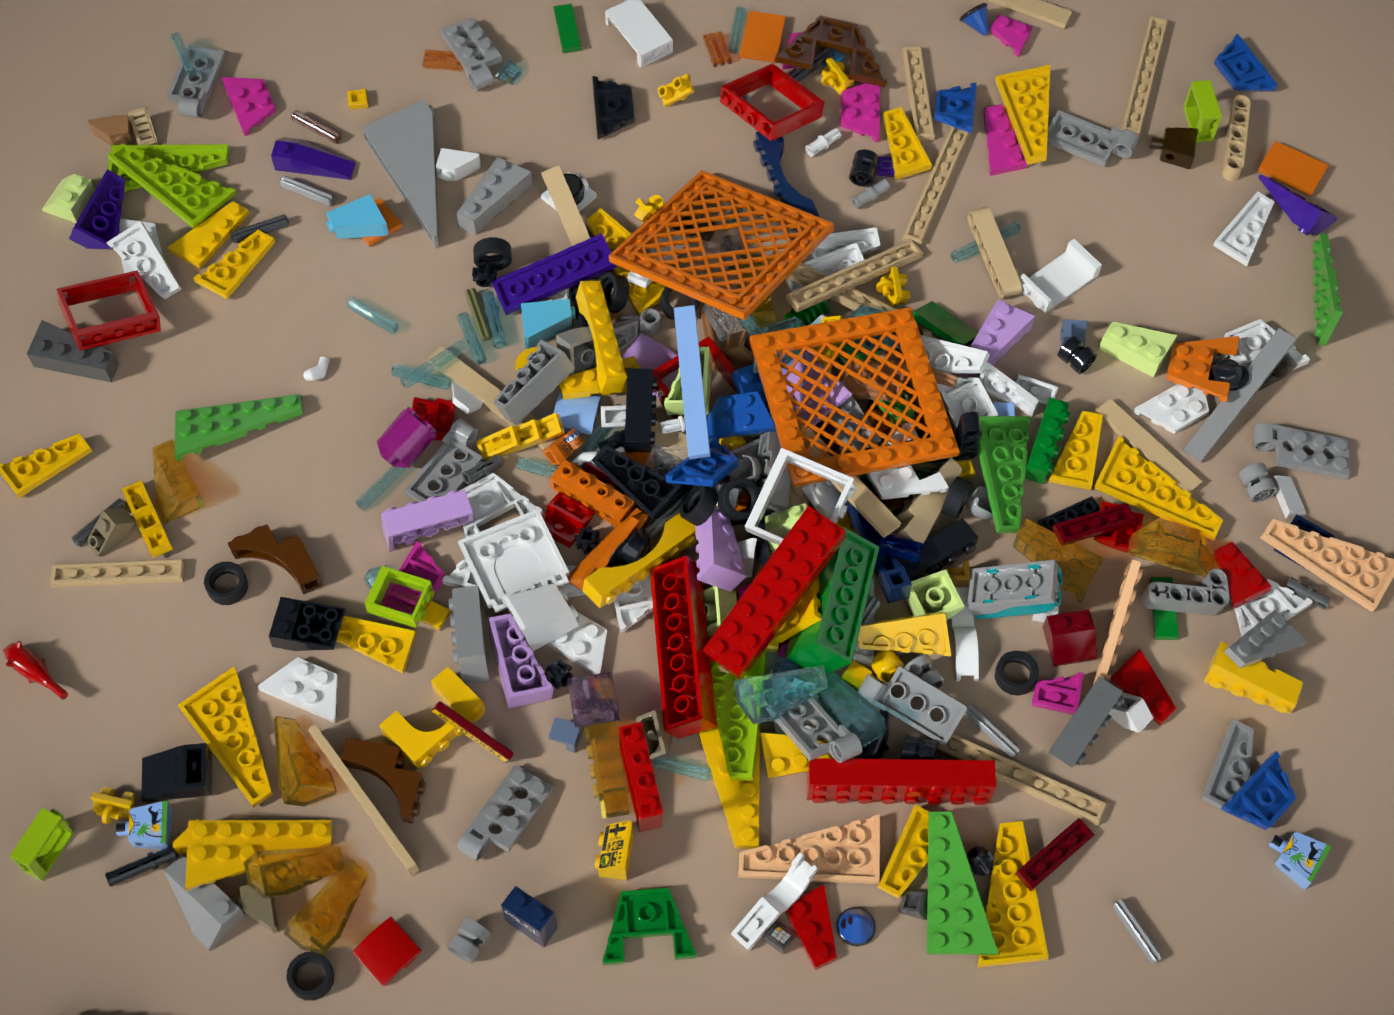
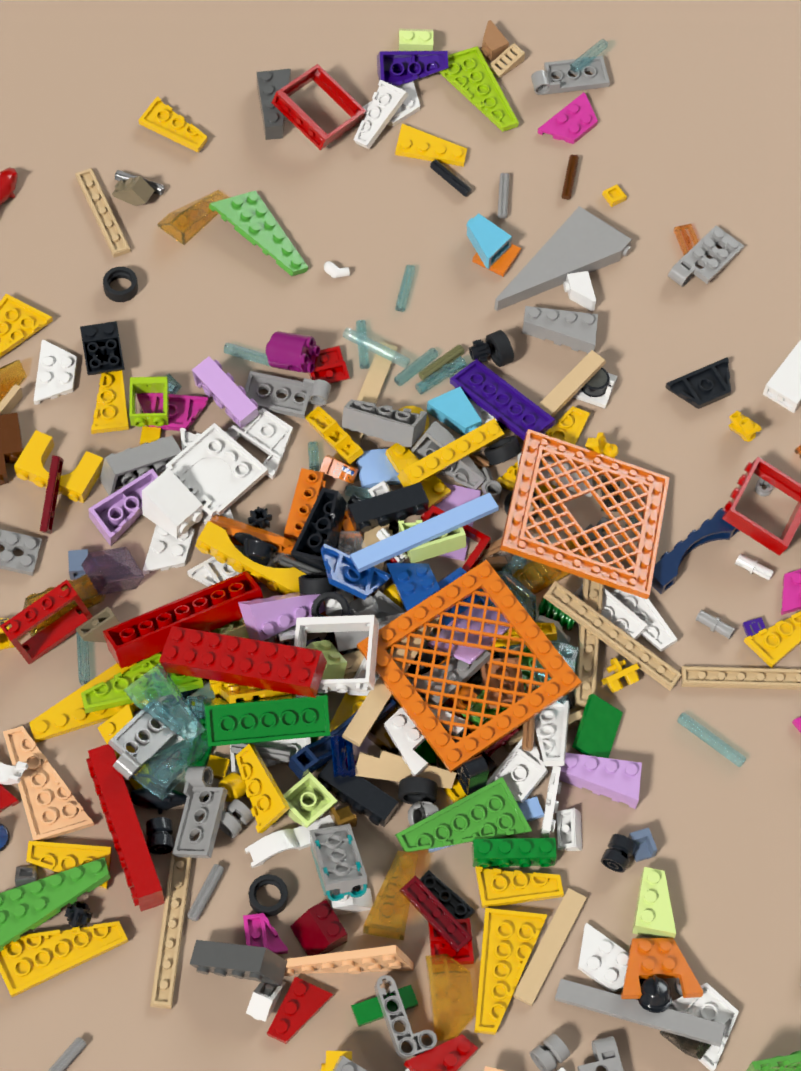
camera: 65 degrees right, 0 degrees up
(147, 519) = (155, 211): yellow slope -> none
(175, 187) = (457, 107): lime wing -> none
(235, 266) = (402, 175): yellow wing -> none
(288, 555) = (161, 314): reddish brown arch -> none
(306, 158) = (536, 183): dark purple wedge -> none
(464, 399) = (353, 382): white tile -> none
(482, 469) = (292, 418): dark grey pin -> none
(509, 72) = (701, 295): clear light blue slope -> none
(558, 673) = (129, 539): black gear -> none
(565, 518) = (274, 495): red slope -> none
(567, 28) = (773, 320): green tile -> none
(584, 457) = (333, 486): white arm -> none
(864, 168) = (745, 606): black wheel -> none
(994, 252) = (697, 747): tan beam -> none
(1054, 854) = (106, 974): dark red tile -> none
(1061, 277) = (700, 815): white panel -> none

